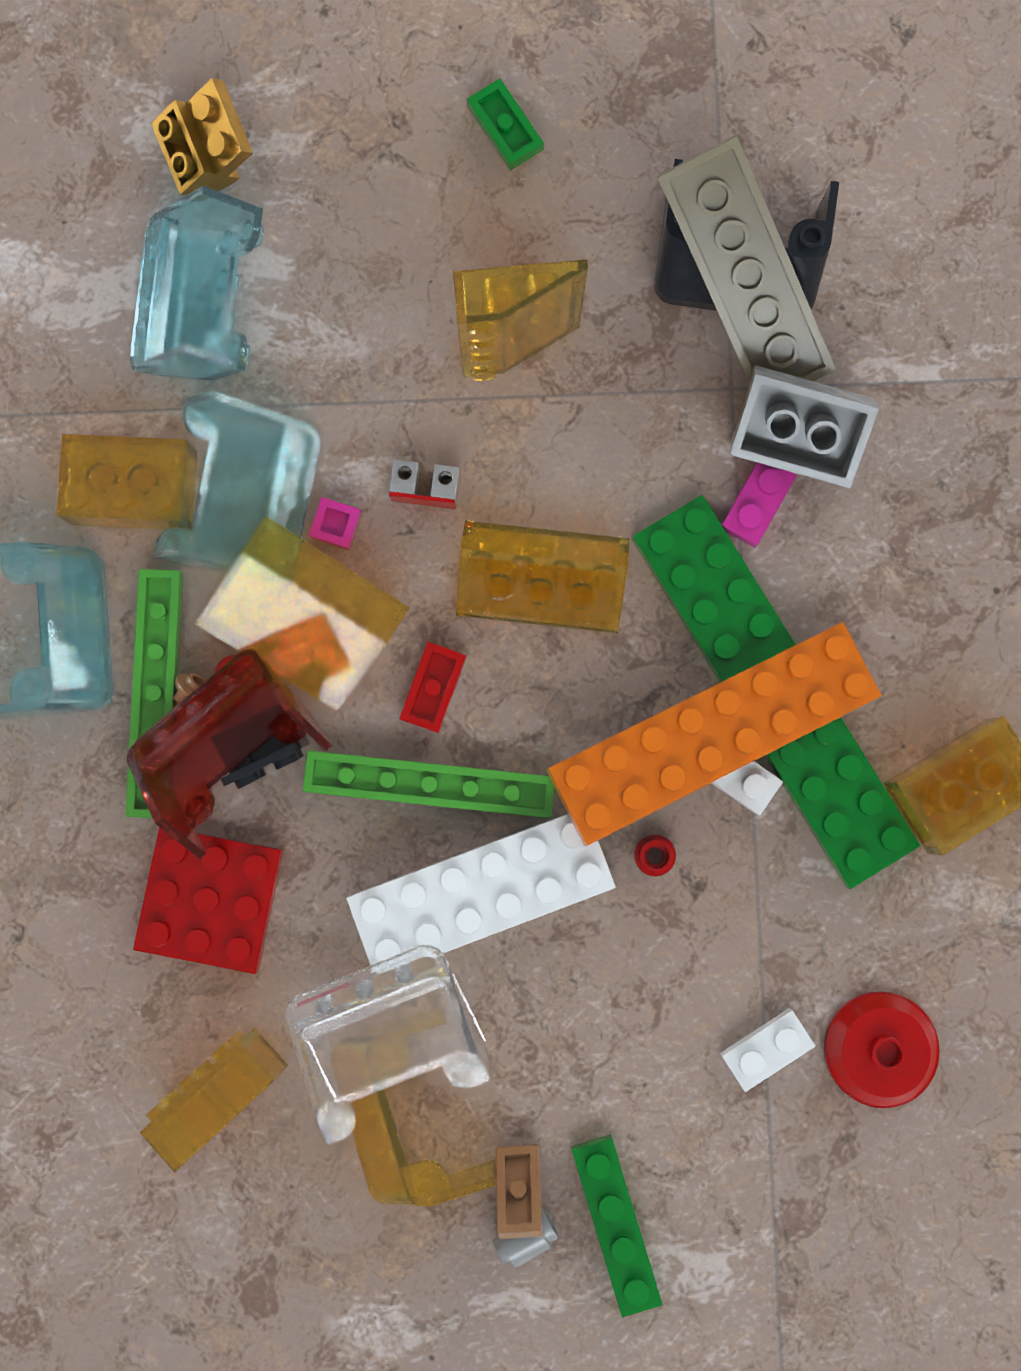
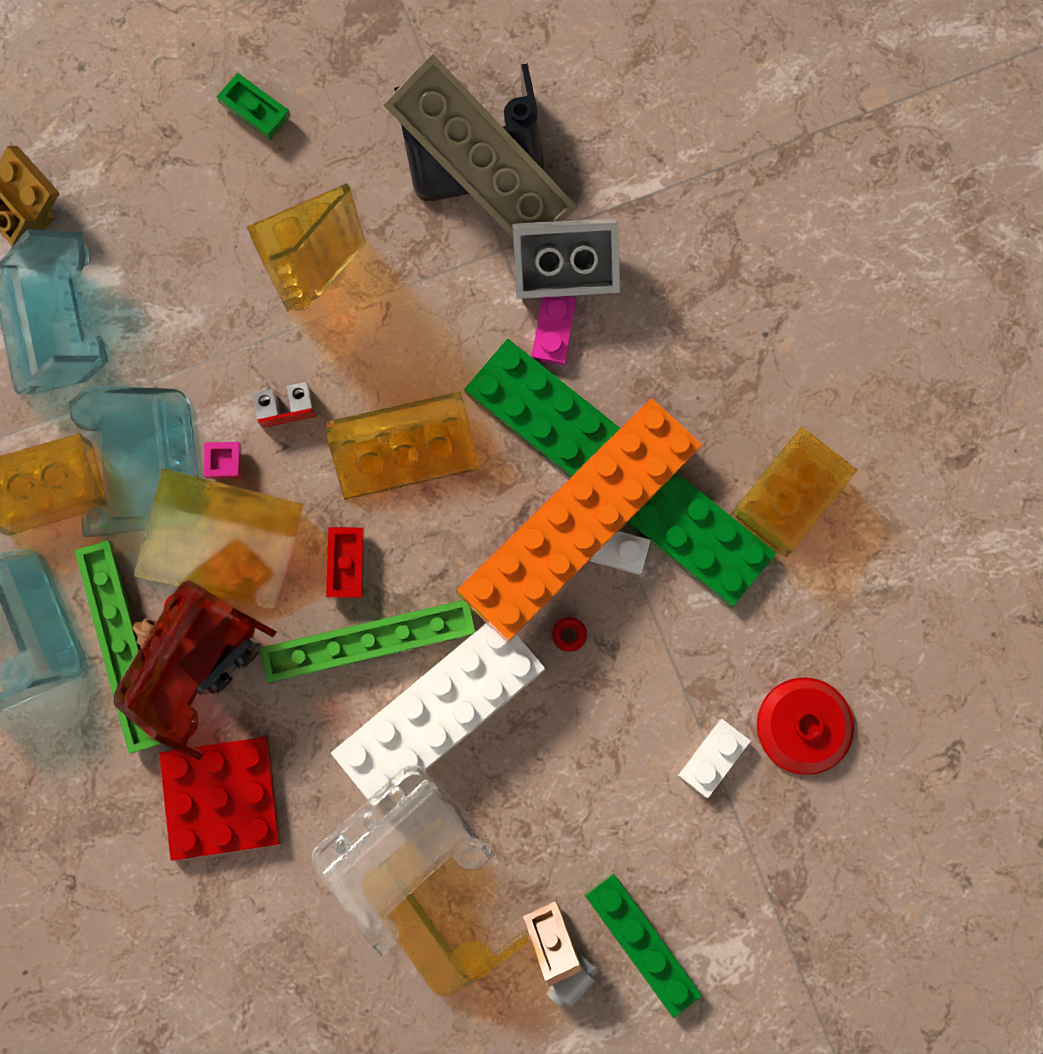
camera: 20 degrees left, 5 degrees down
(212, 1097) = (275, 955): clear yellow brick -> none

